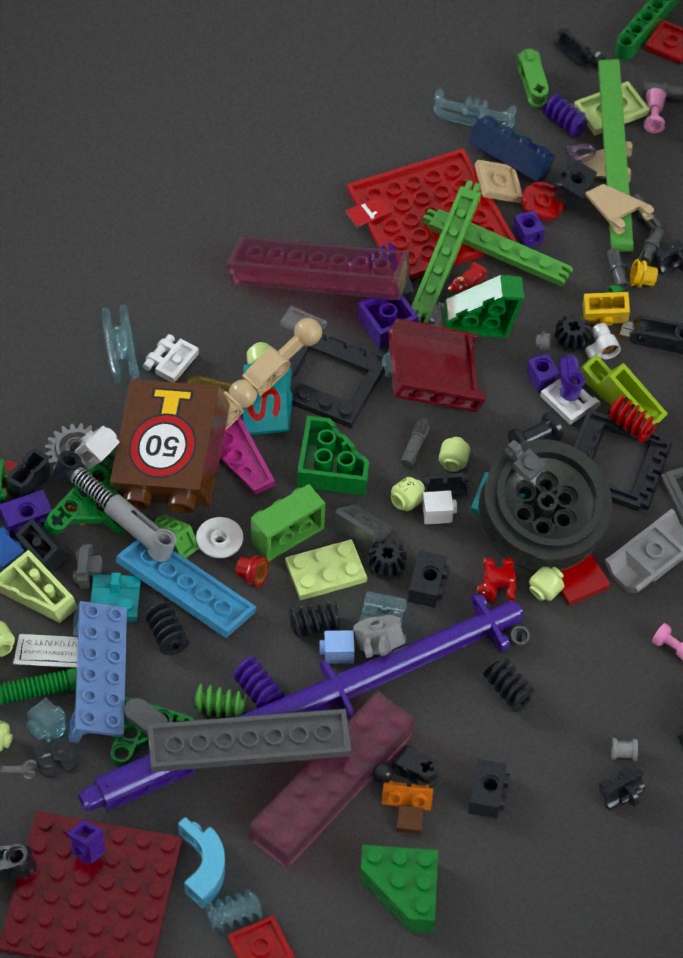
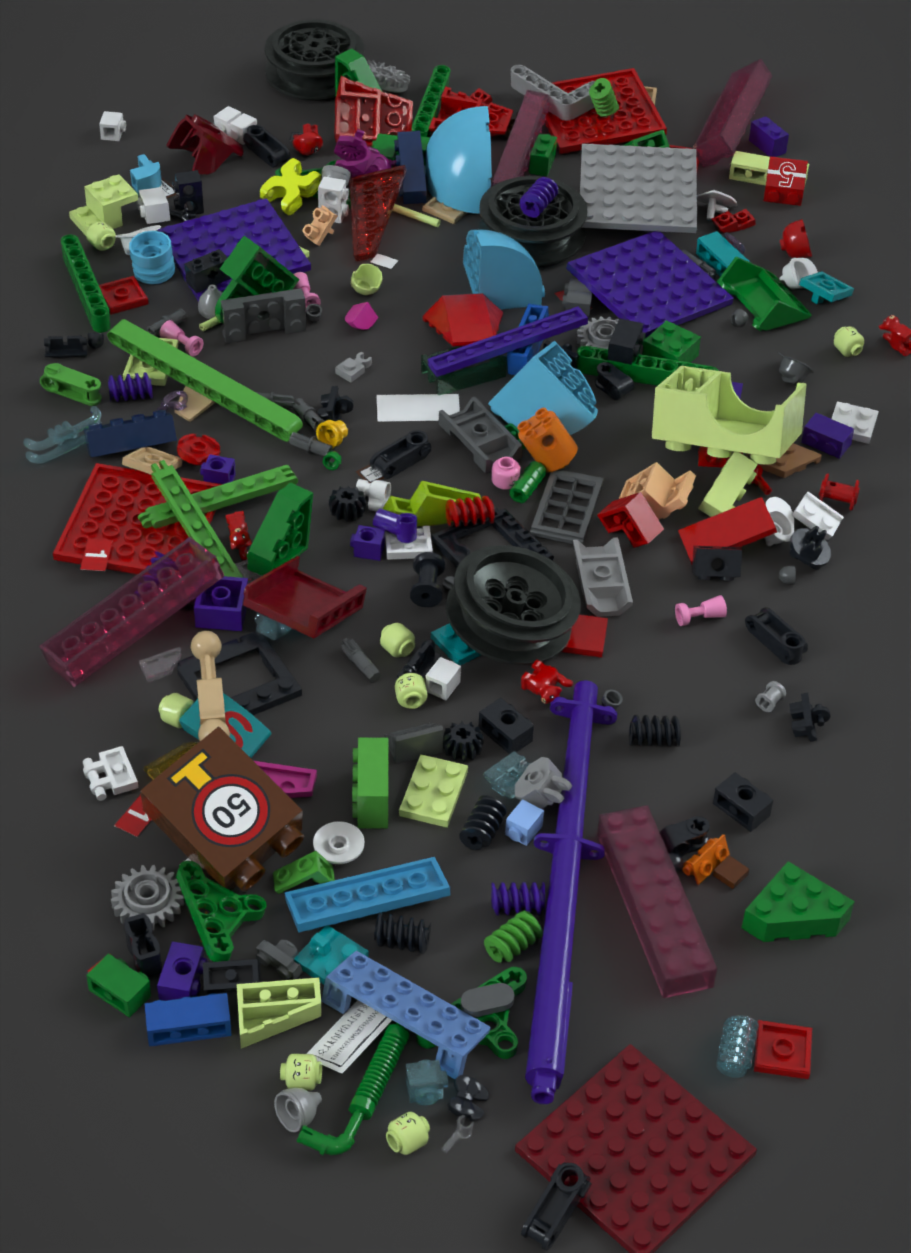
camera: 55 degrees left, 10 degrees down
(87, 846) = (598, 1119): dark purple brick -> none
(96, 446) = (176, 866): white brick -> none
(121, 346) = (60, 802): clear light blue piece -> none
(157, 540) = (312, 883): piece -> none
(208, 879) = (674, 1034): medium azure arch -> none
(249, 740) = (586, 927): dark grey plate -> none
(253, 570) = (393, 838): red piece -> none
(330, 460) = (330, 720): green brick -> none
(526, 463) = (481, 577): dark grey plate -> none
(543, 340) = (336, 525): clear plate -> none
(546, 583) = (577, 653): yellowish green head -> none
(574, 185) = (207, 419): black brick -> none
(606, 308) = (347, 468): yellow brick -> none
(616, 204) = (260, 404): tan flag -> none

